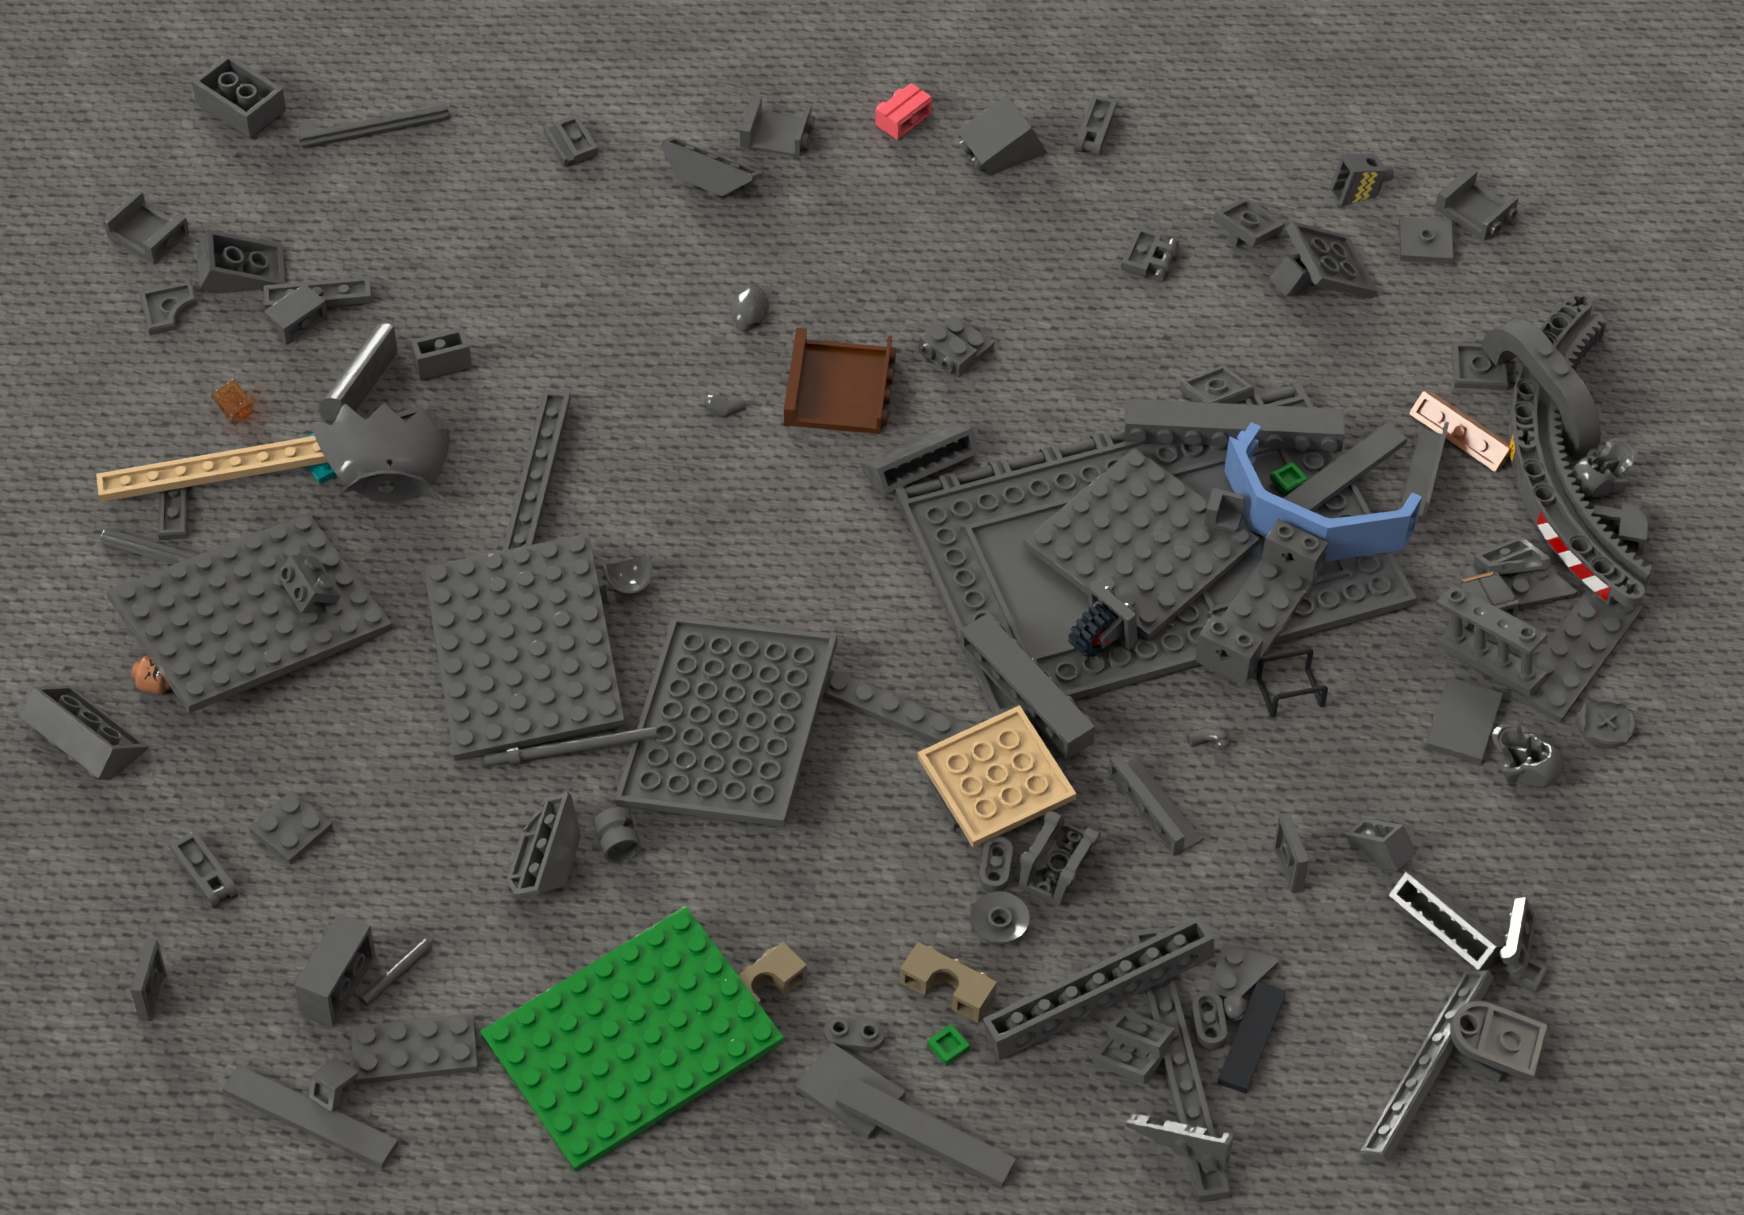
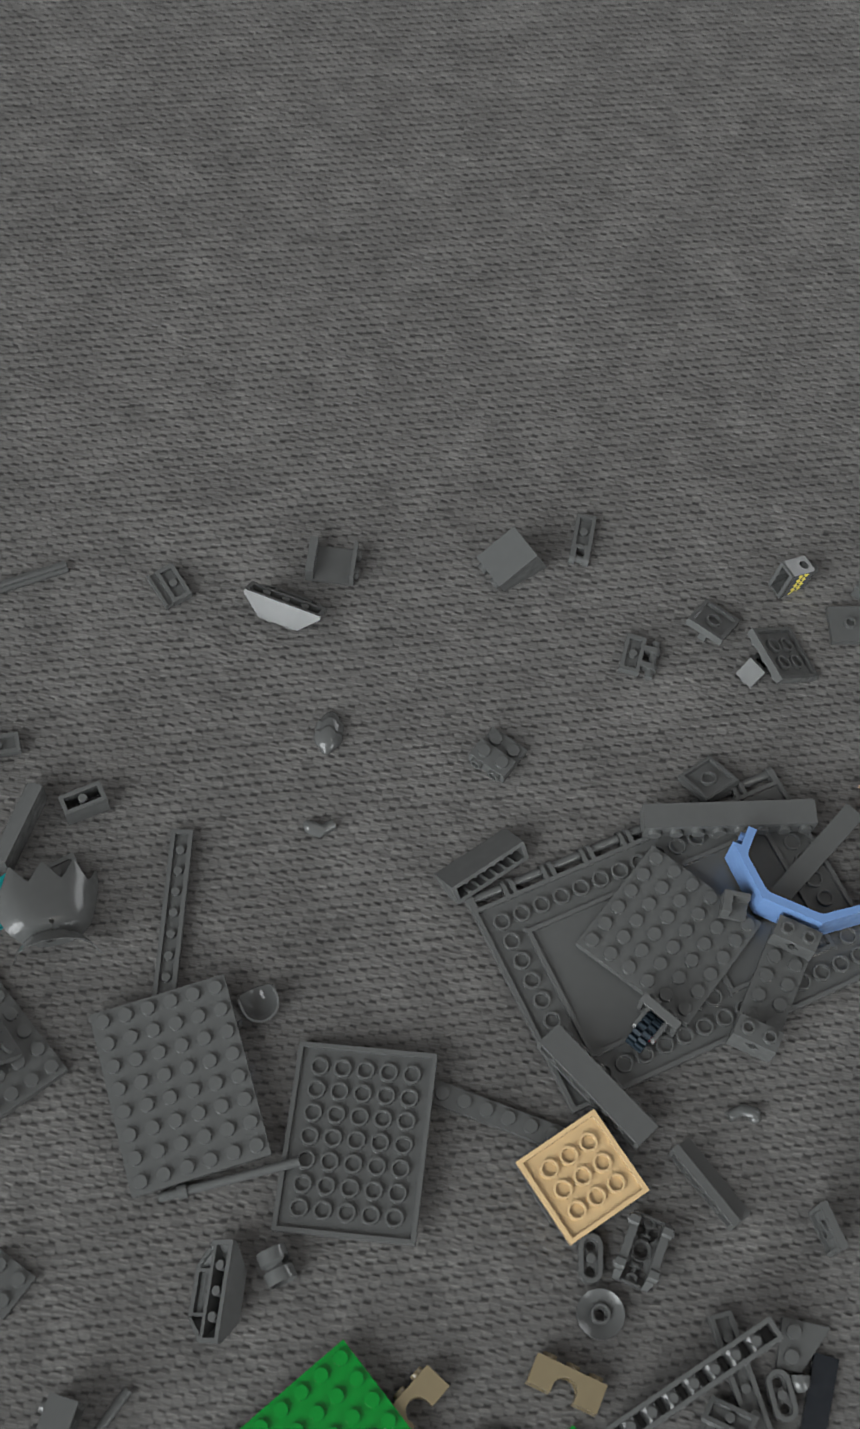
camera: 10 degrees left, 10 degrees up
(838, 385) = (409, 801): reddish brown panel -> none
(903, 111) = (430, 539): coral brick -> none
(1272, 707) = (826, 1067): black piece -> none
(1288, 478) = (776, 862): green tile -> none

